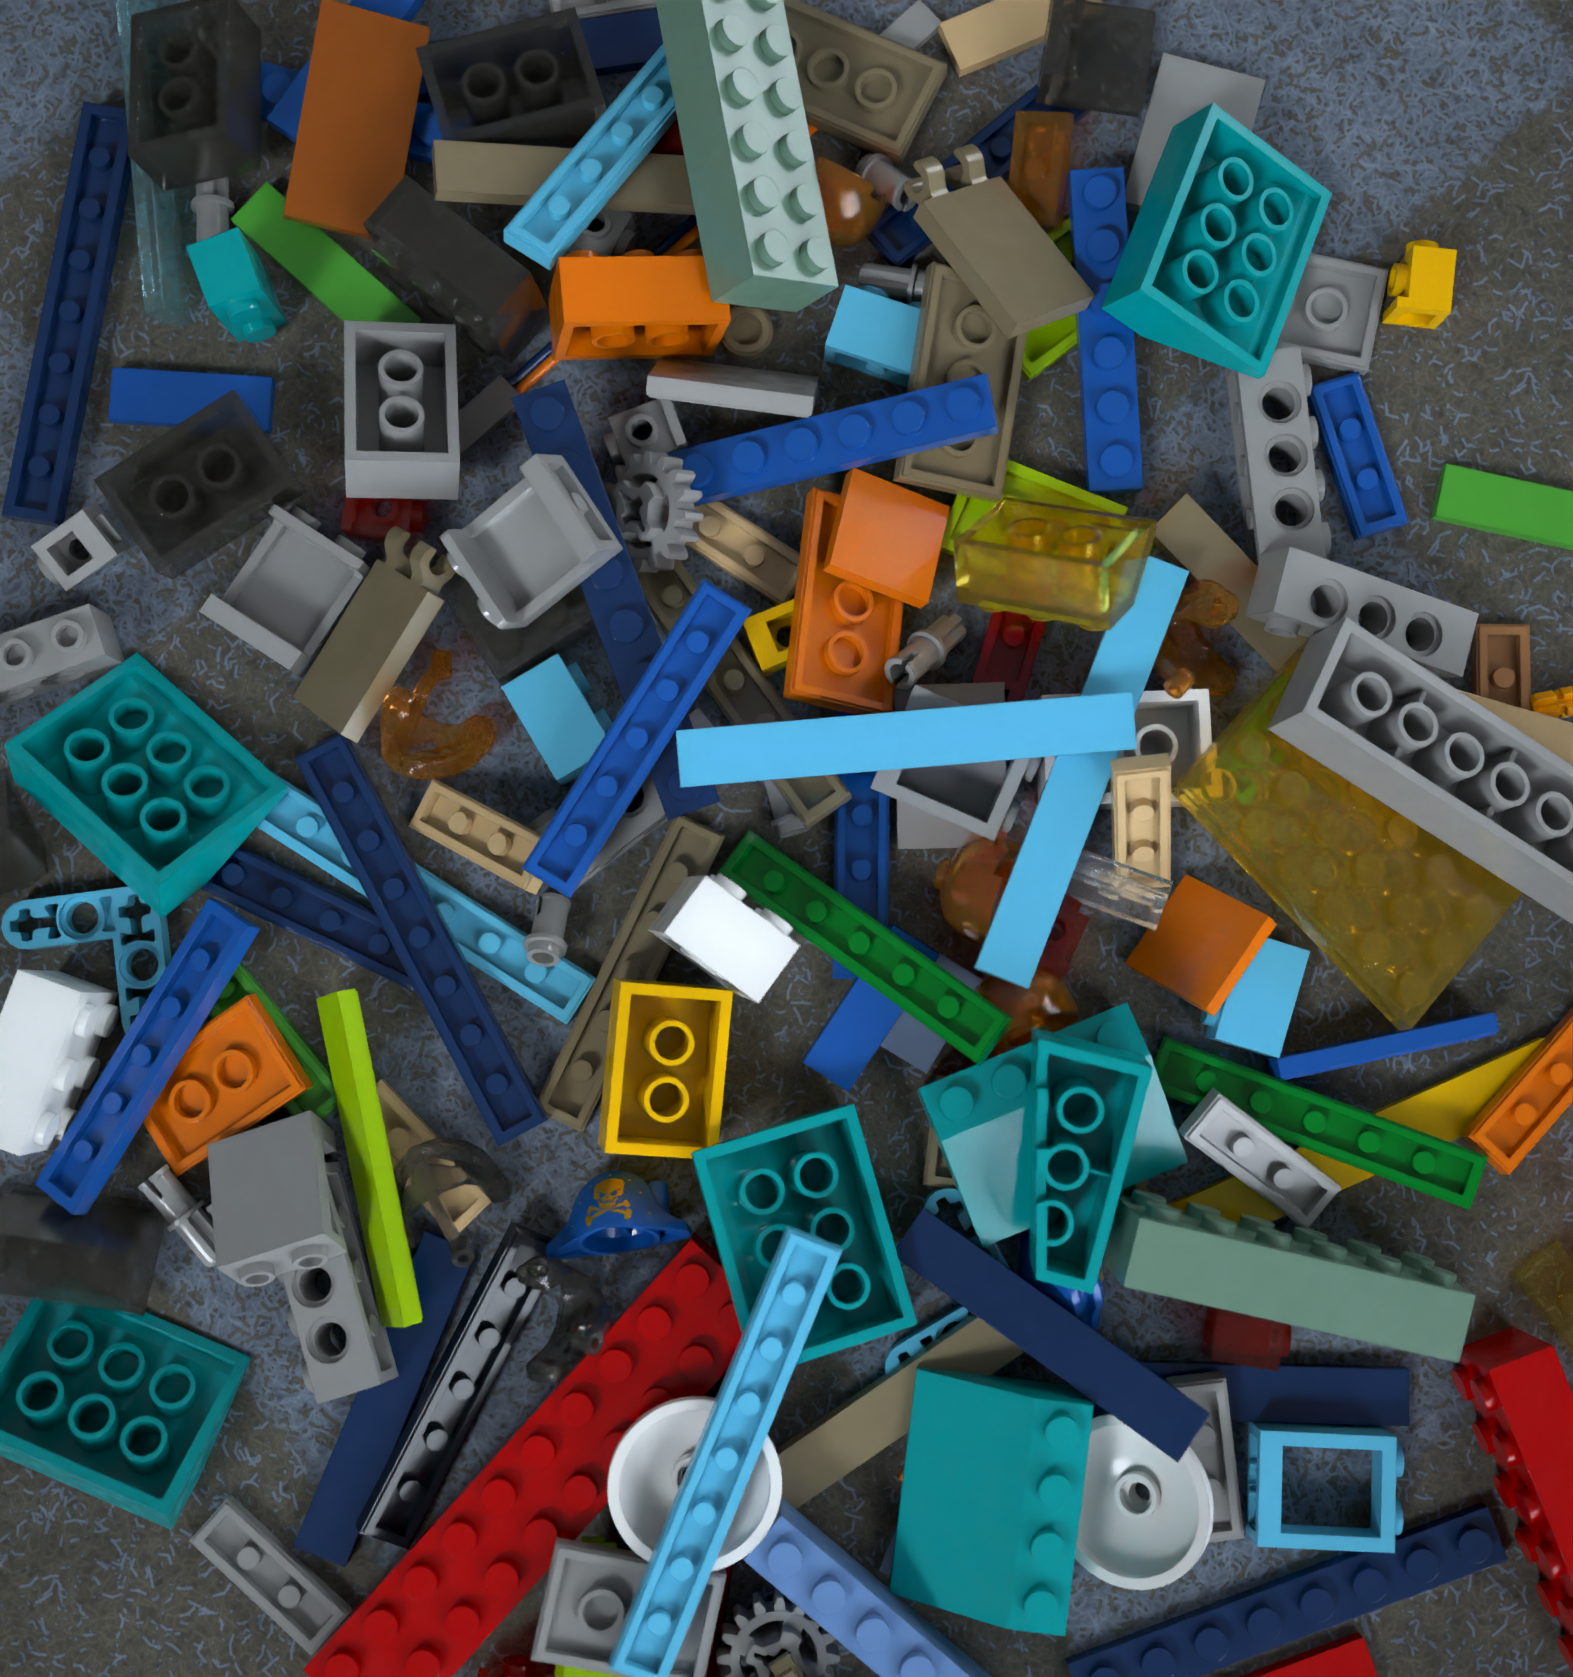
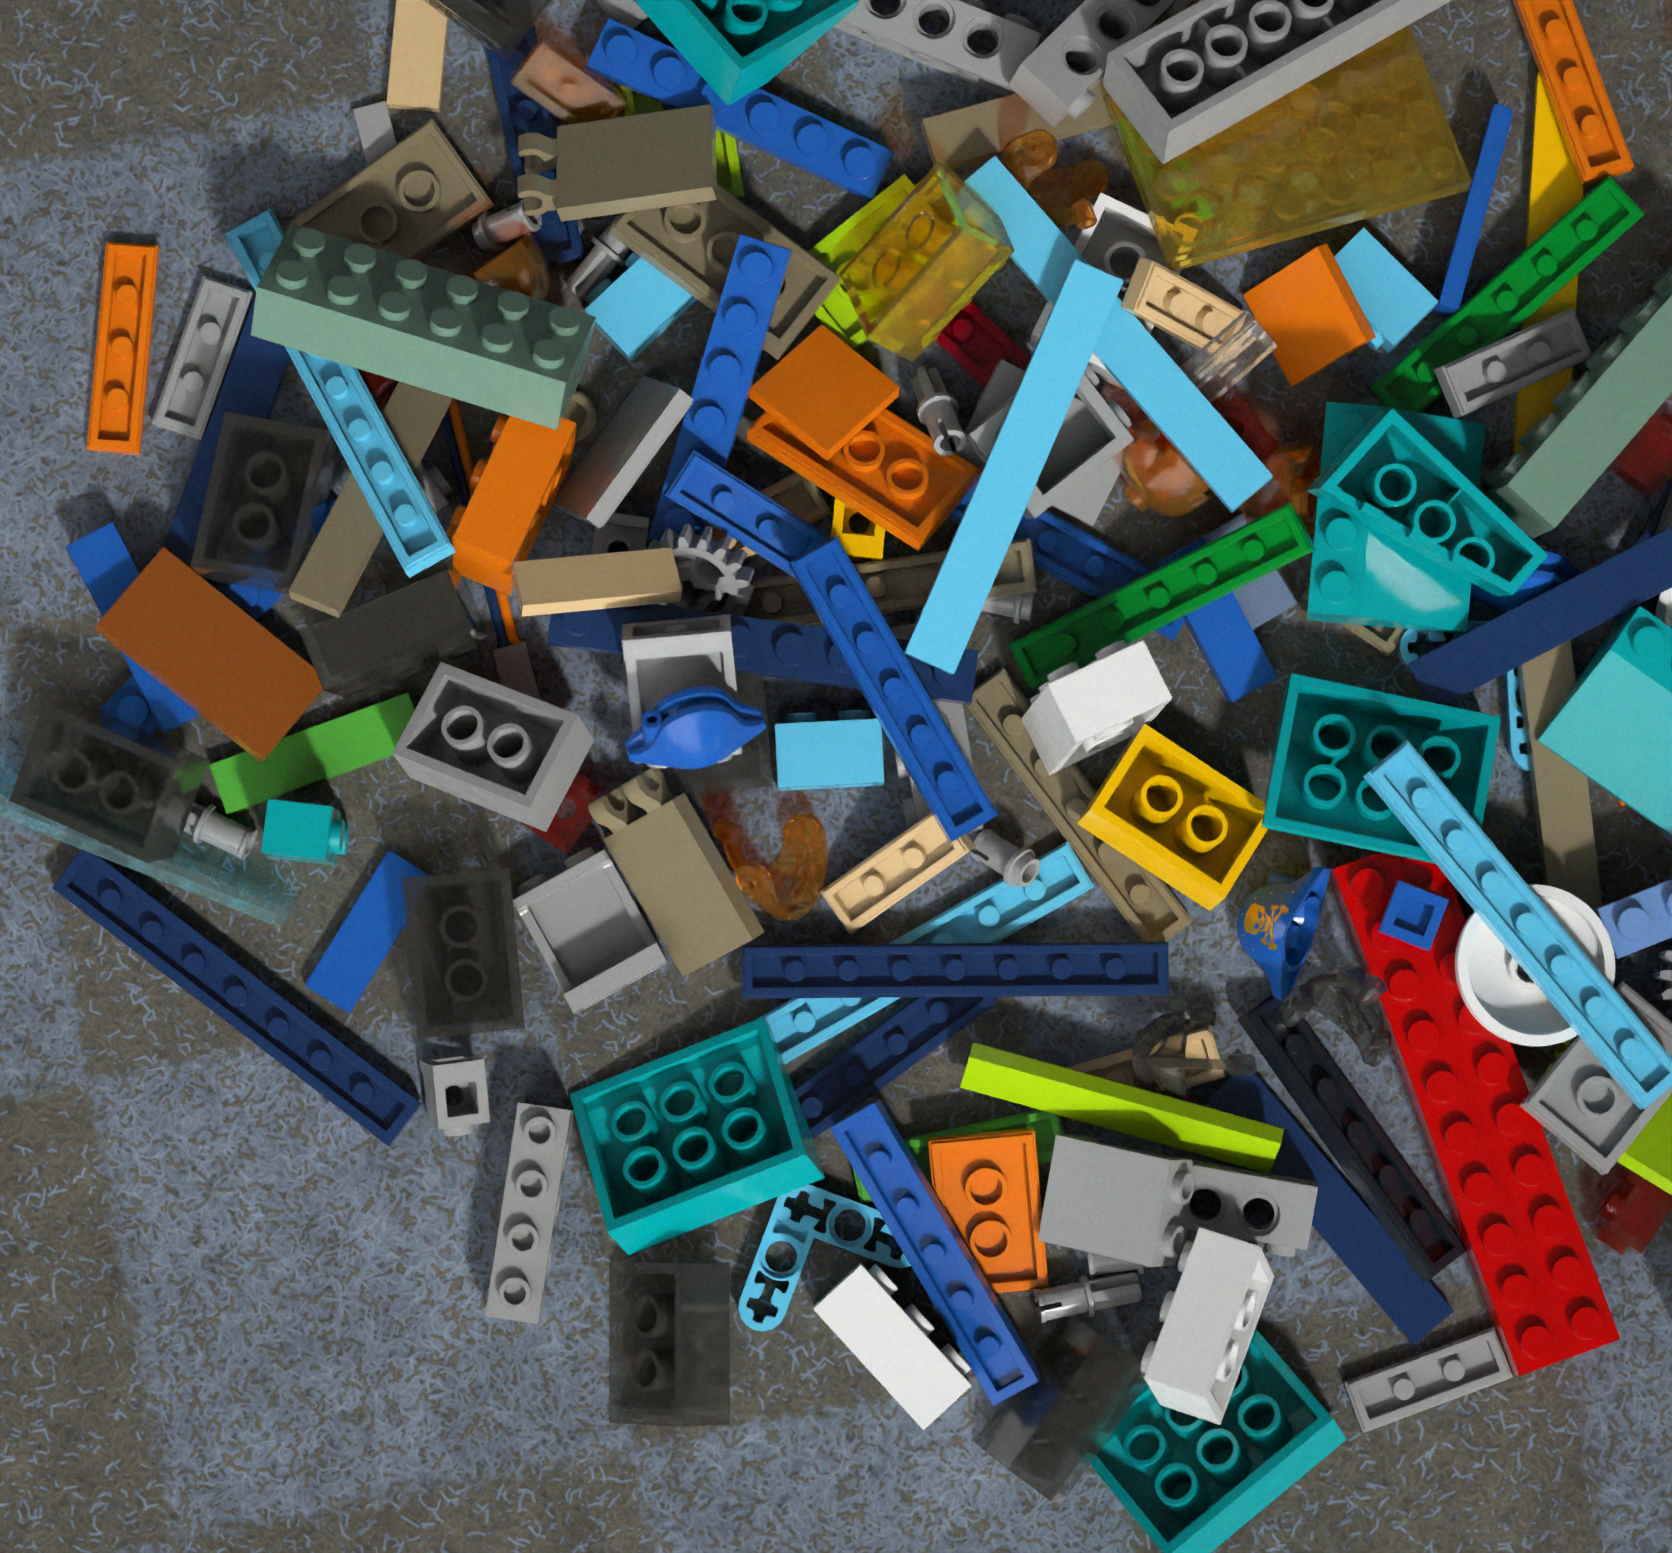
camera: 65 degrees left, 0 degrees up
(194, 1347) = (1207, 1325): none -> white brick
(495, 571) = (693, 729): none -> blue hat
(589, 411) = (596, 581): none -> tan tile
(680, 1341) = (1412, 915): none -> blue plate
(735, 517) = (742, 511): none -> blue tile

